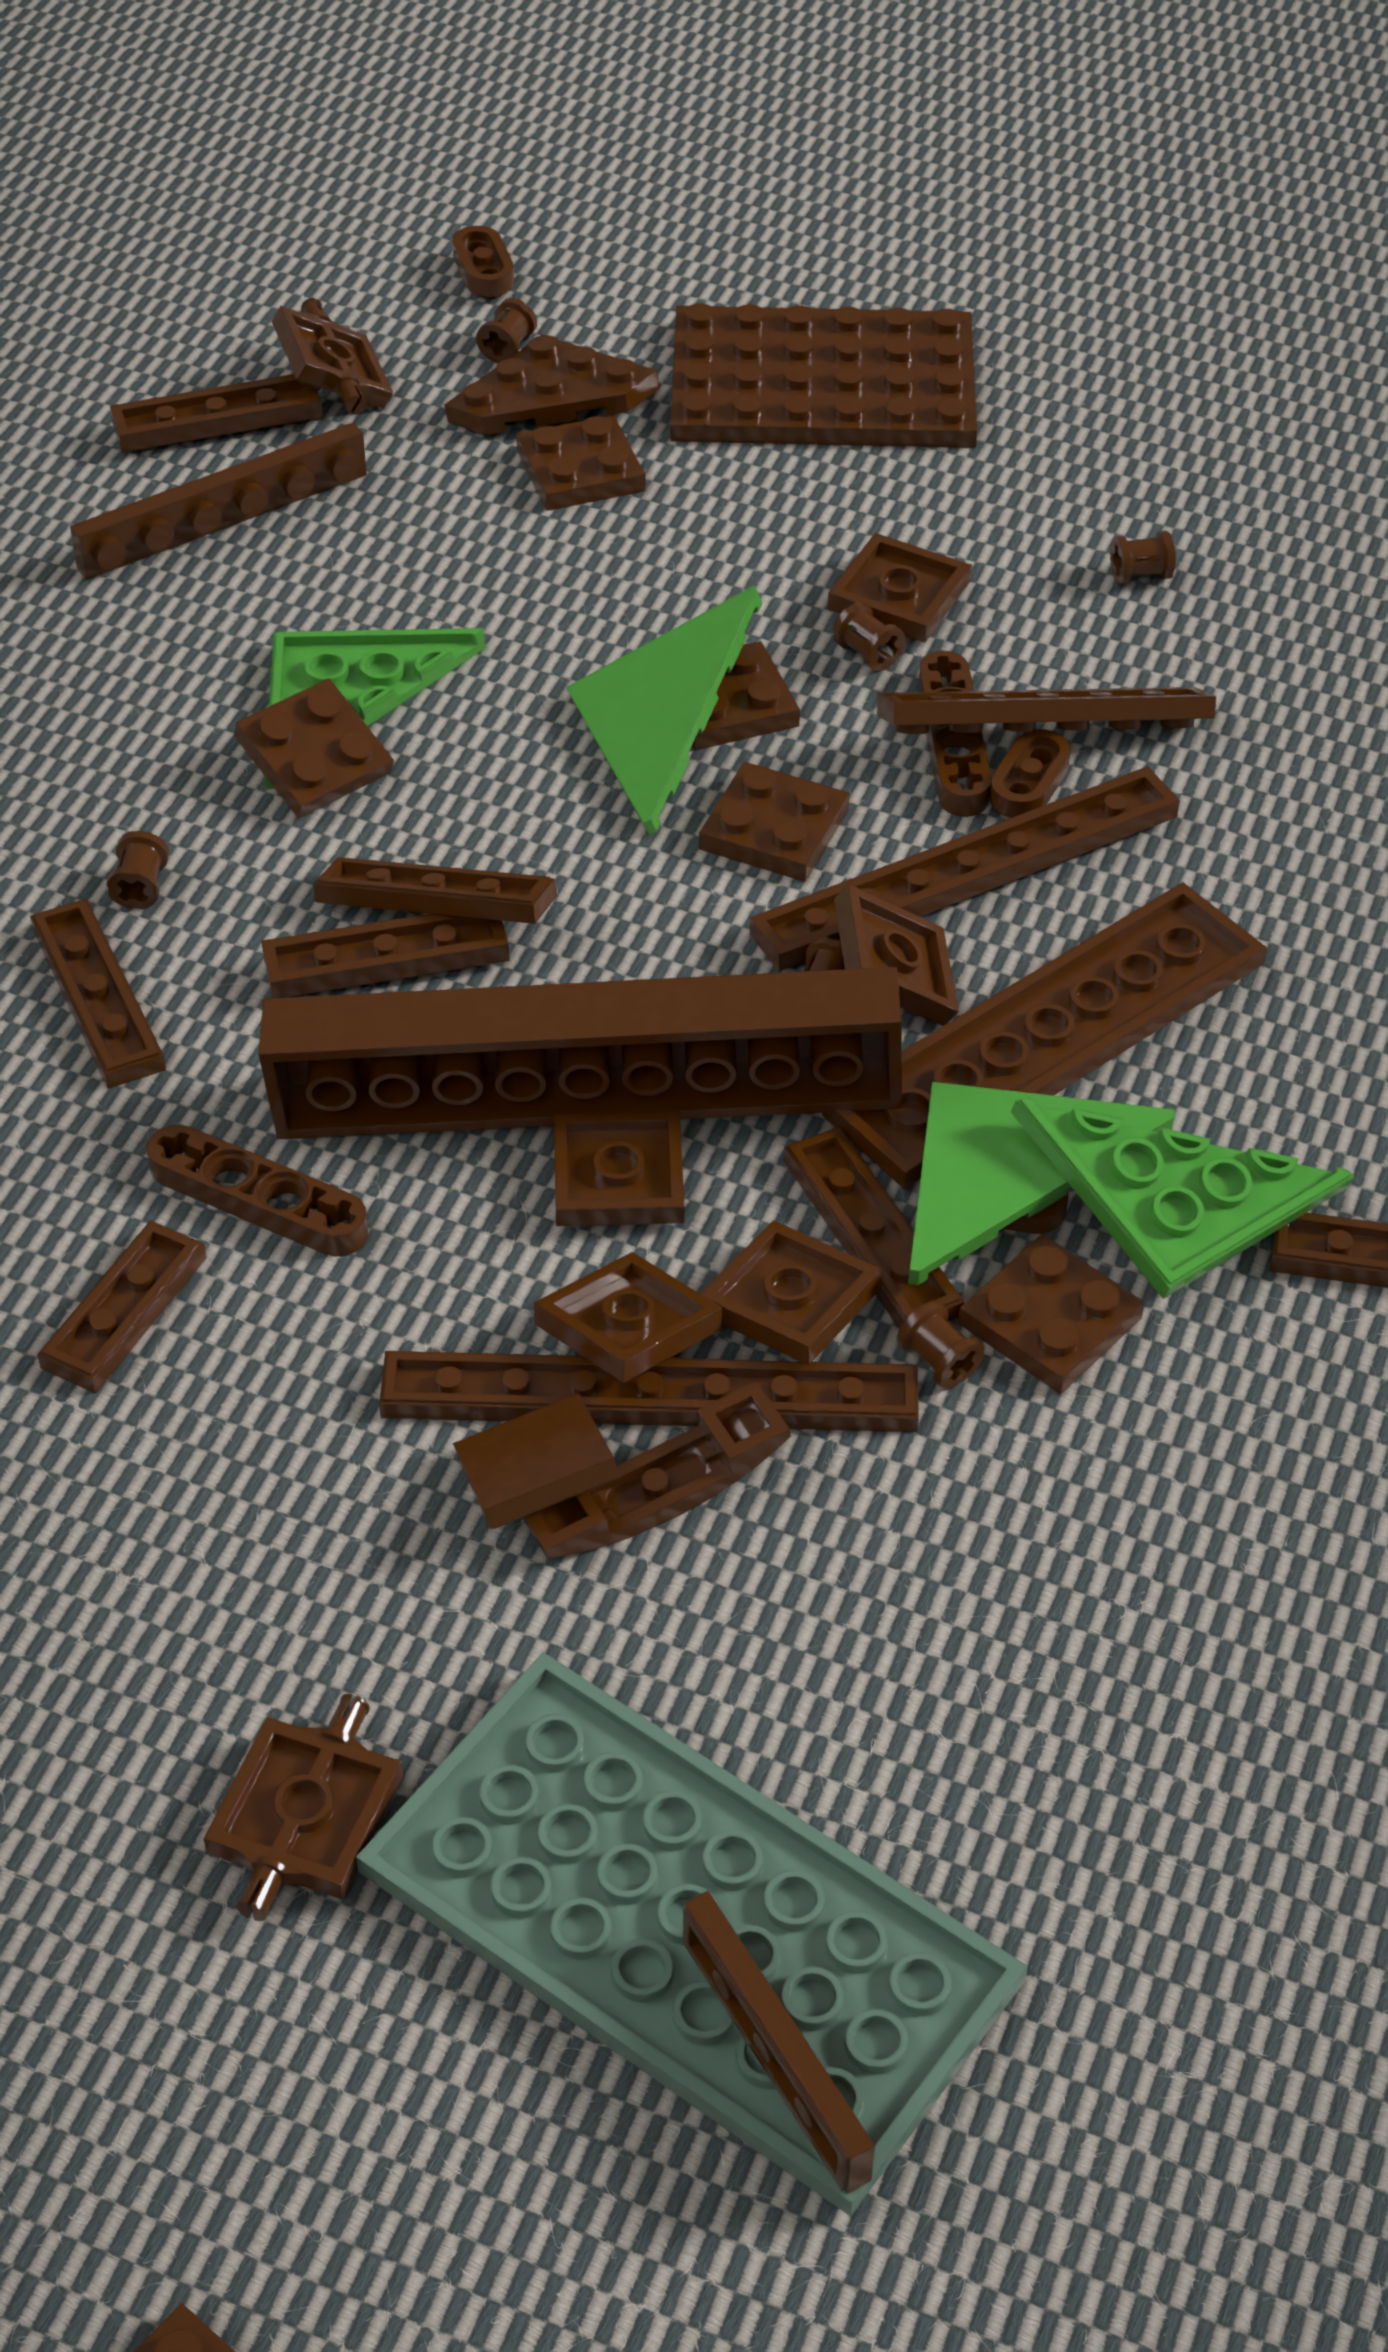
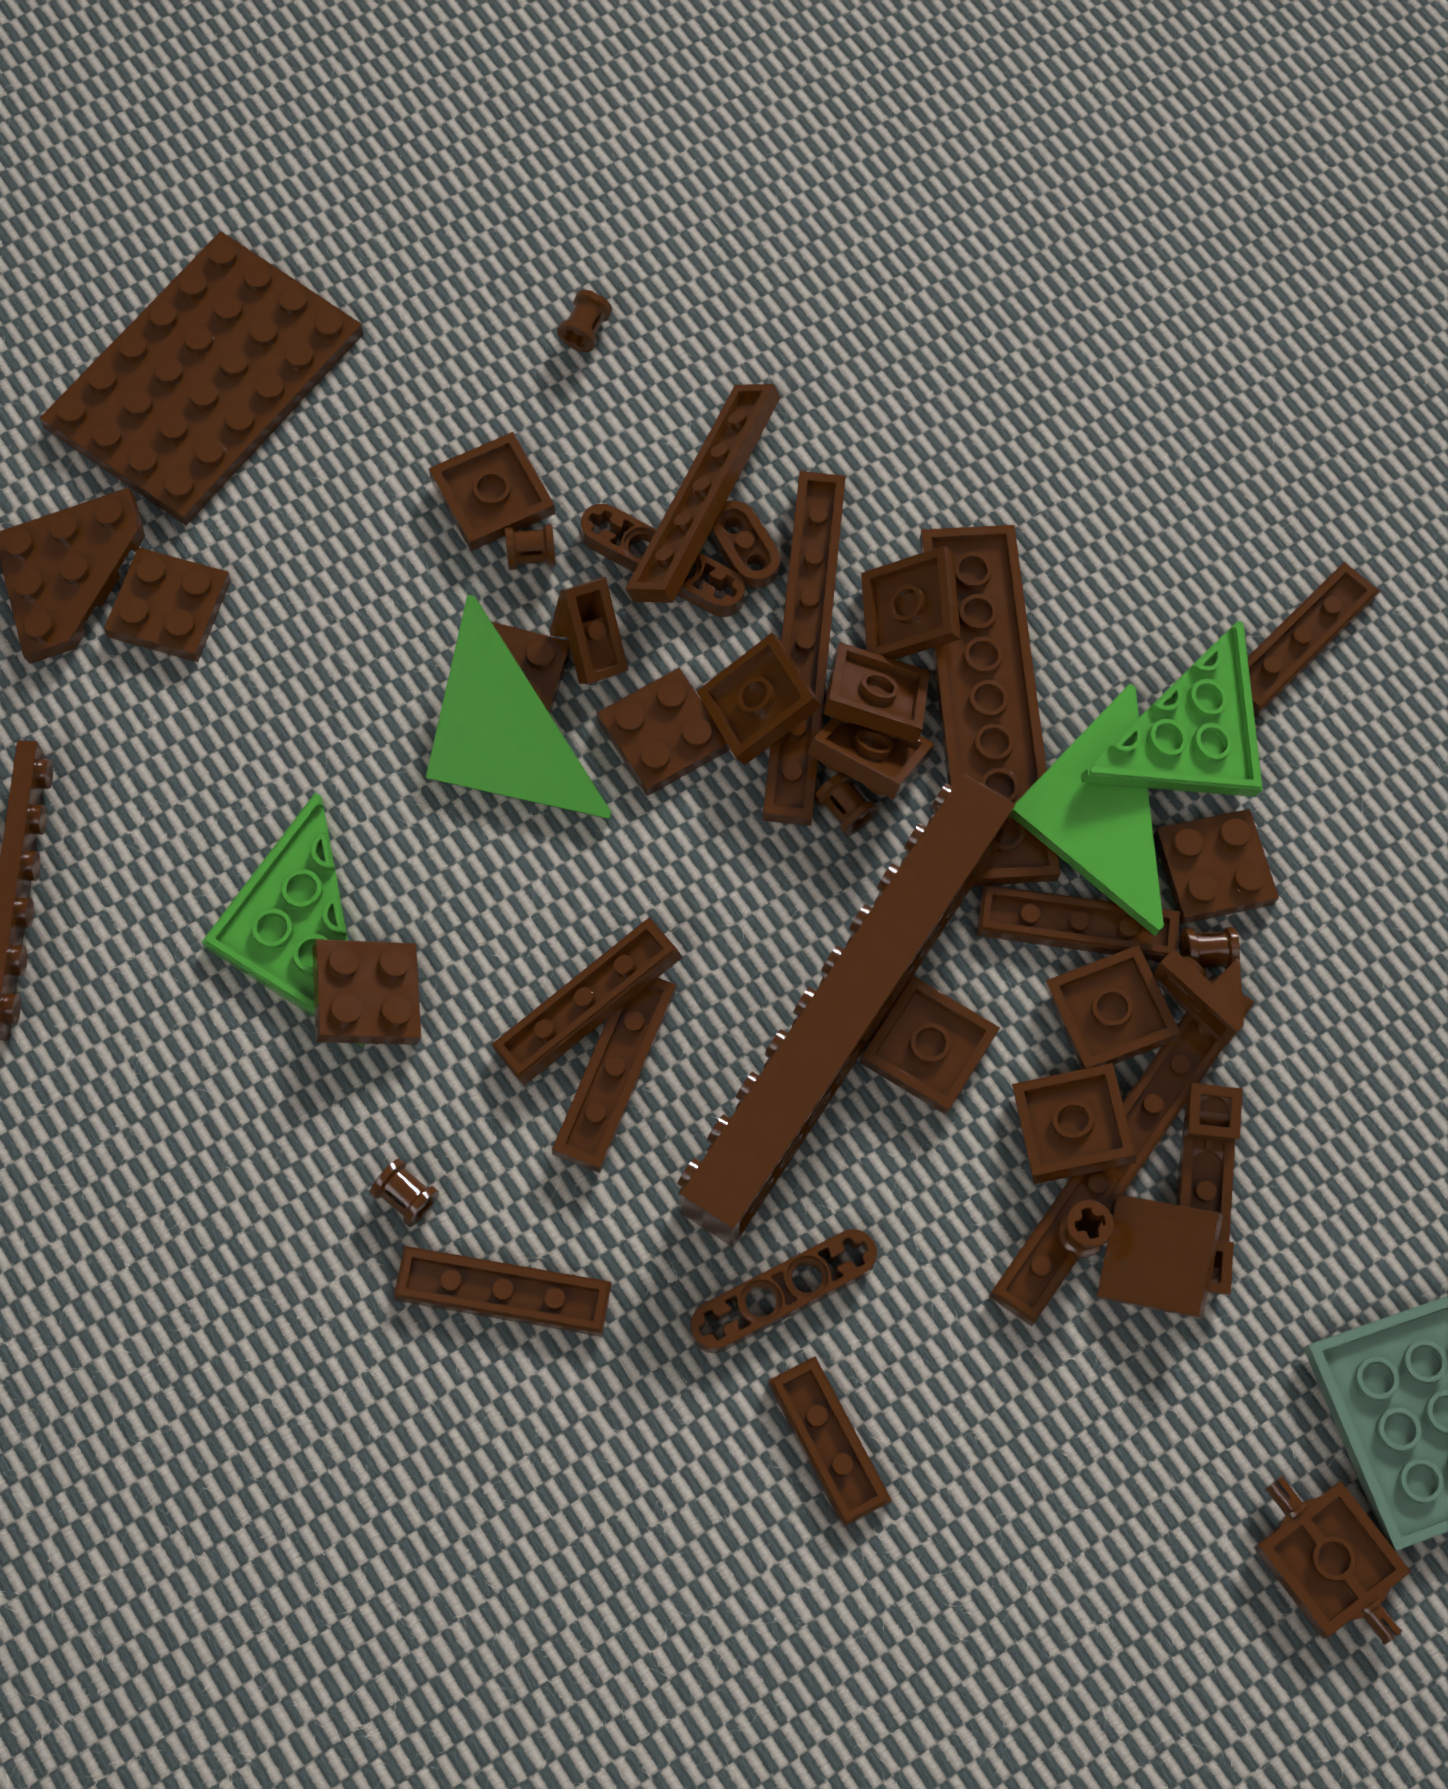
camera: 60 degrees left, 20 degrees up
(508, 1364) = (1092, 1215): none -> reddish brown bush
(817, 702) = (590, 624): none -> reddish brown slope
(863, 848) = (758, 699): none -> reddish brown plate
(878, 1354) = (1213, 1005): none -> reddish brown slope
(960, 928) = (877, 692): none -> reddish brown plate
(1086, 909) = (911, 604): none -> reddish brown plate

